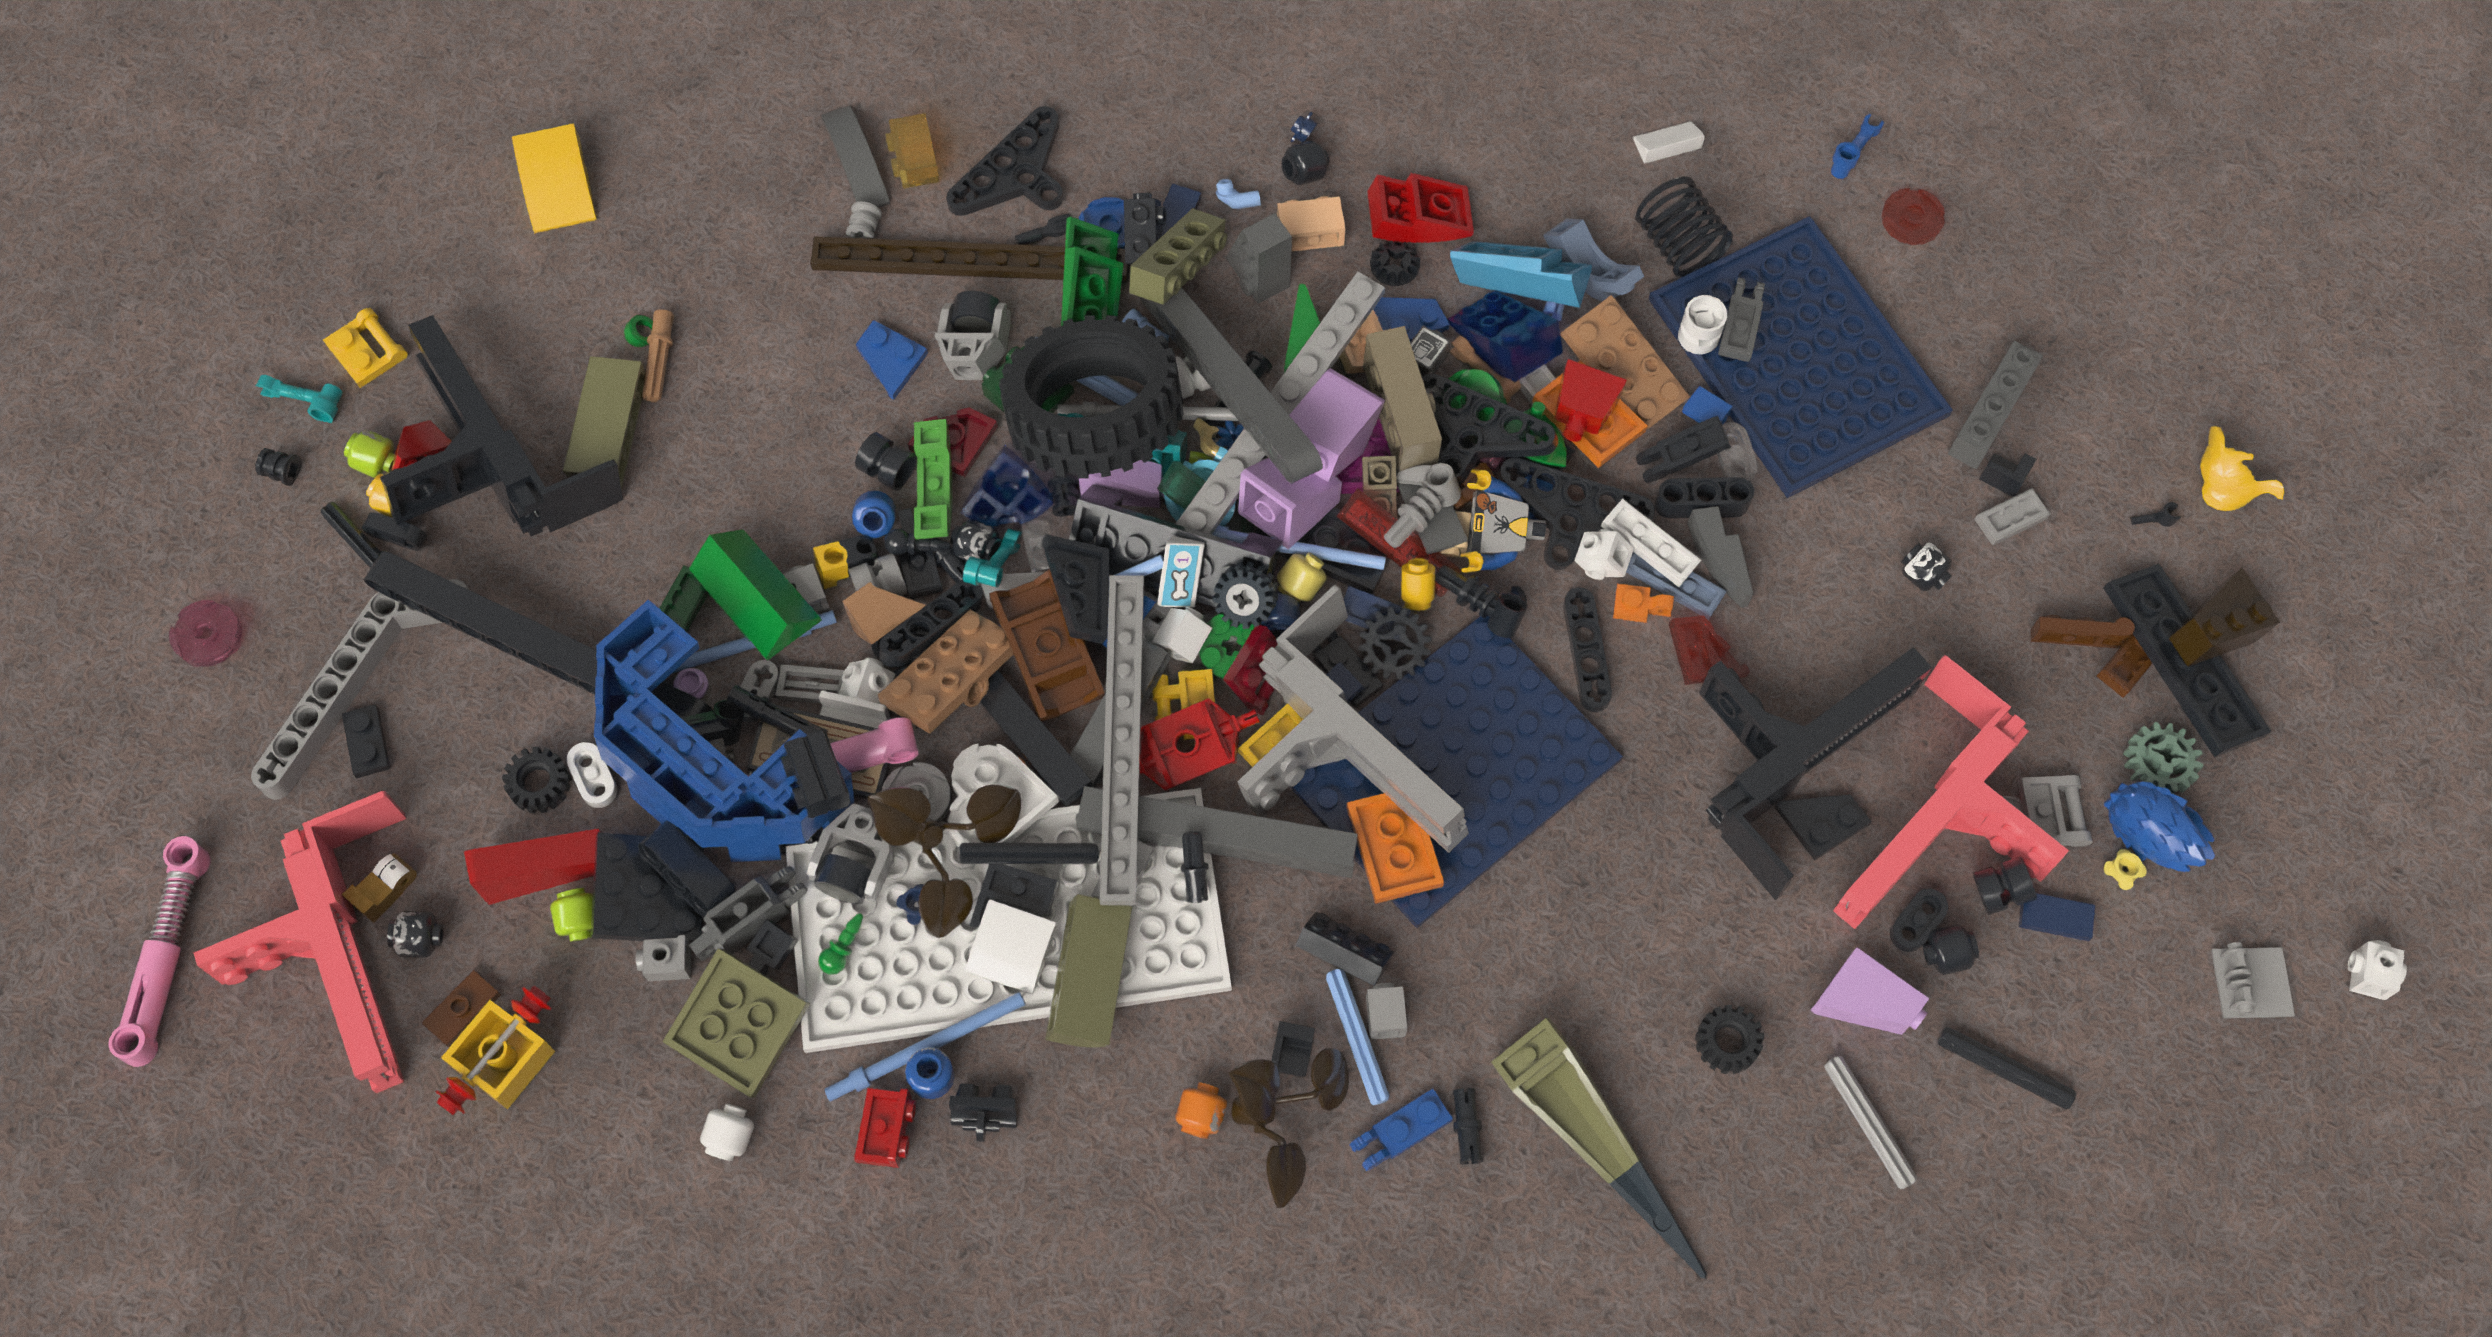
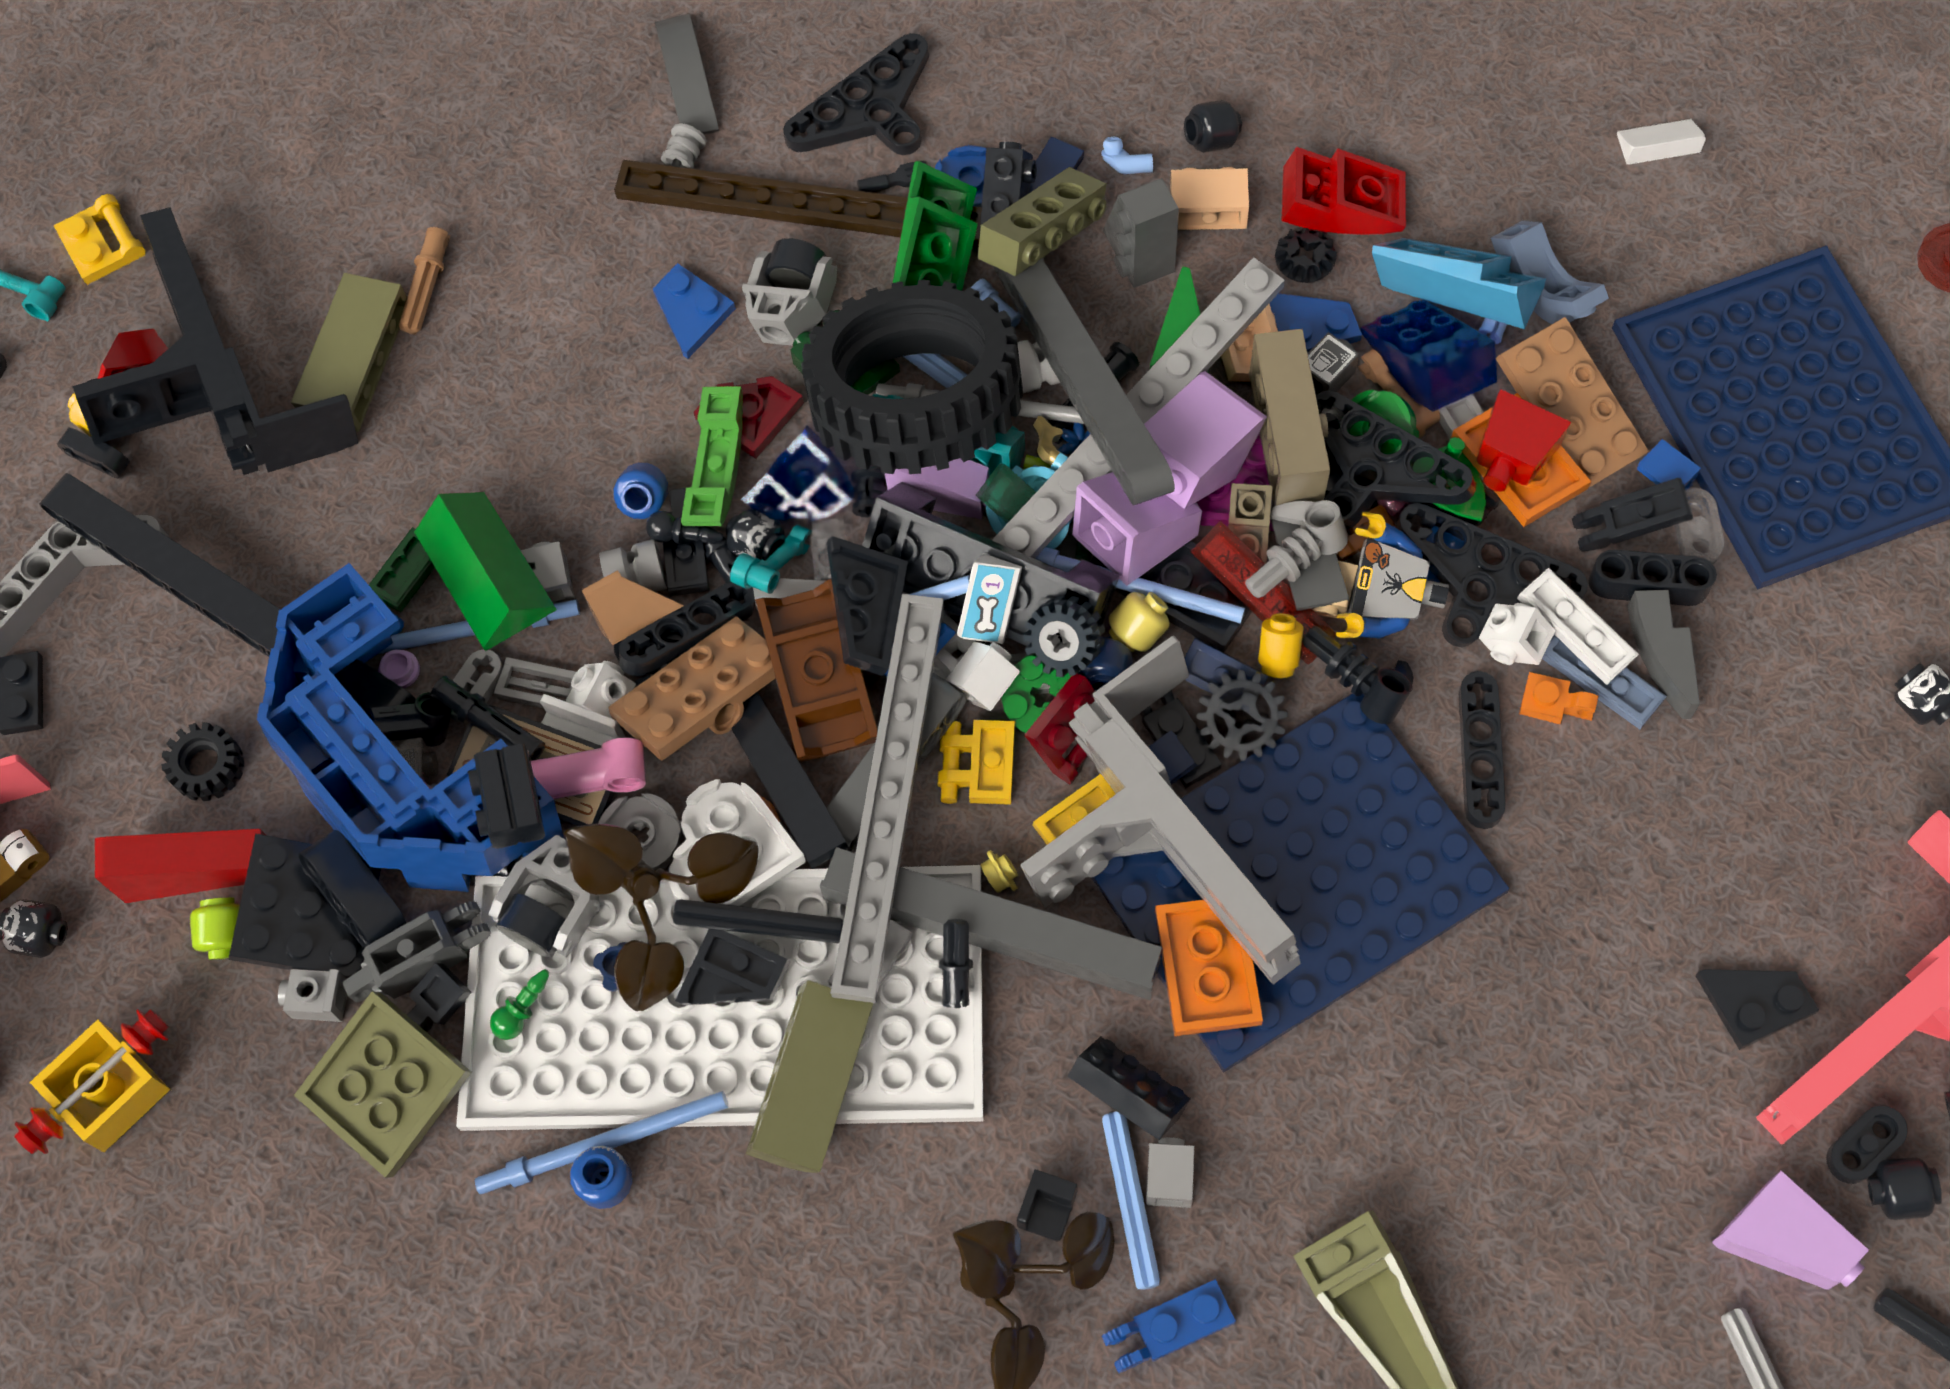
camera: 15 degrees right, 0 degrees up
(350, 533) = (43, 446): black axle -> none
(370, 453) = (78, 357): lime head -> none
(460, 1008) = (70, 1020): reddish brown plate -> none
(554, 178) = (340, 66): yellow slope -> none
(593, 776) = (264, 767): white plate -> none
(631, 333) = (398, 252): green piece -> none
(727, 1132) = (350, 1217): white head -> none
(837, 557) = (594, 535): leg -> none
(881, 459) = (667, 432): black wheel -> none
(884, 1127) = (538, 1236): red bracket -> none
(913, 150) = (752, 71): clear yellow brick -> none
(983, 1113) = (656, 1235): black hips -> none
(1010, 947) = (720, 1034): white slope -> none
(1201, 1111) = (923, 1269): orange head -> none
(1215, 744) = (1004, 815): red plate -> none
(1216, 791) = (999, 872): none -> light yellow plate
(1303, 128) = (1216, 85): dark blue plate -> none
(1467, 1126) = (1253, 1333): black pin -> none
(1700, 233) = (1670, 216): black piece -> none
(1700, 649) = (1626, 770): clear red wing -> none
(1702, 324) = (1675, 364): white wheel -> none
(1742, 323) = (1725, 367): dark grey hinge -> none
(1744, 1025) = (1621, 1248): black tyre -> none
(1790, 751) = (1723, 908): black piece -> none
(1848, 153) = (1883, 174): blue brick -> none

